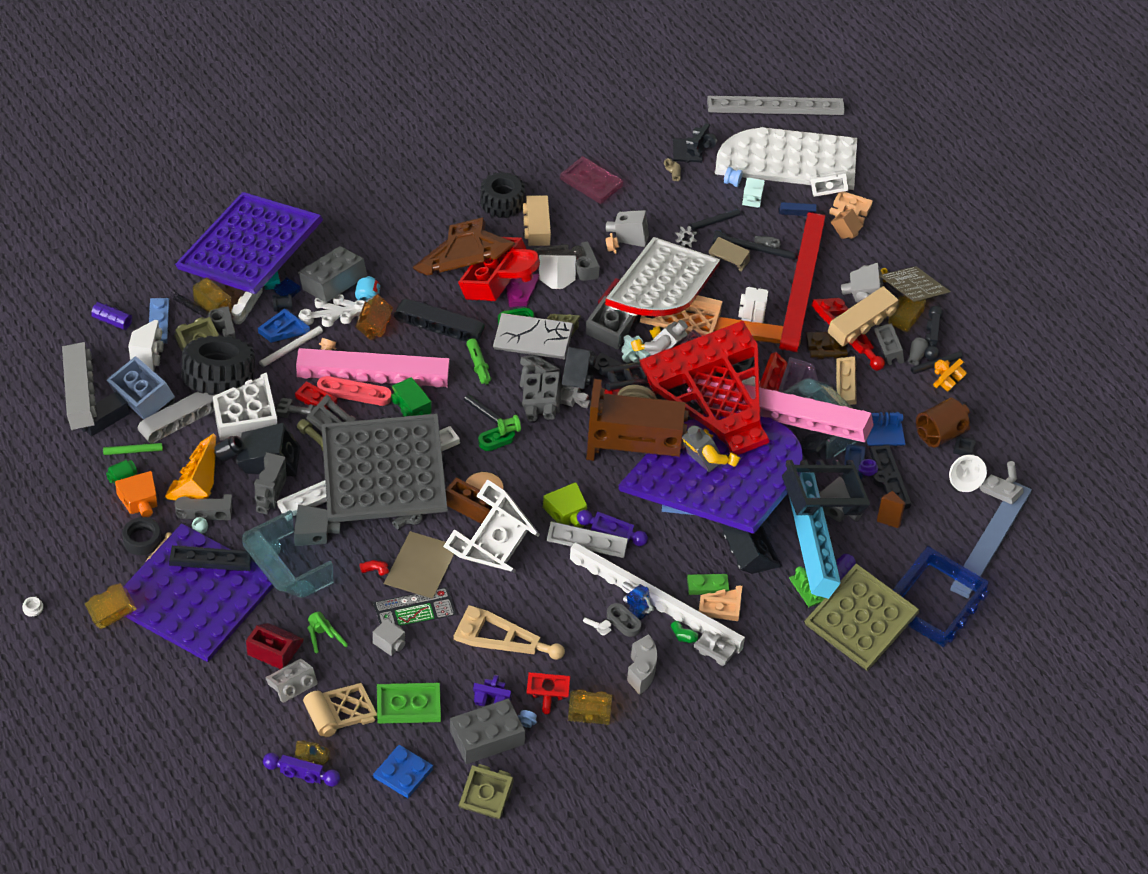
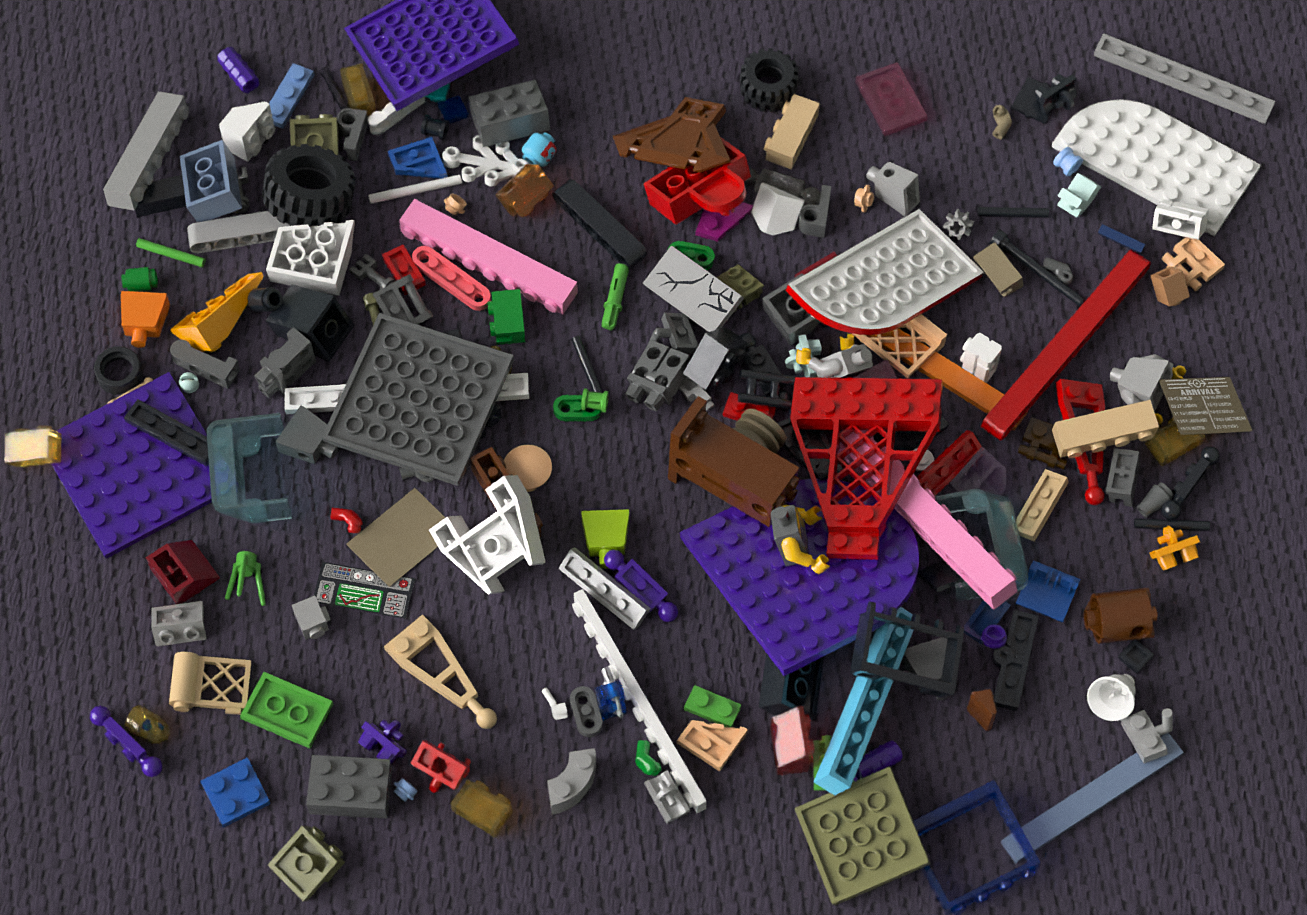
camera: 30 degrees right, 15 degrees up
(778, 579) = (791, 741): none -> clear red slope

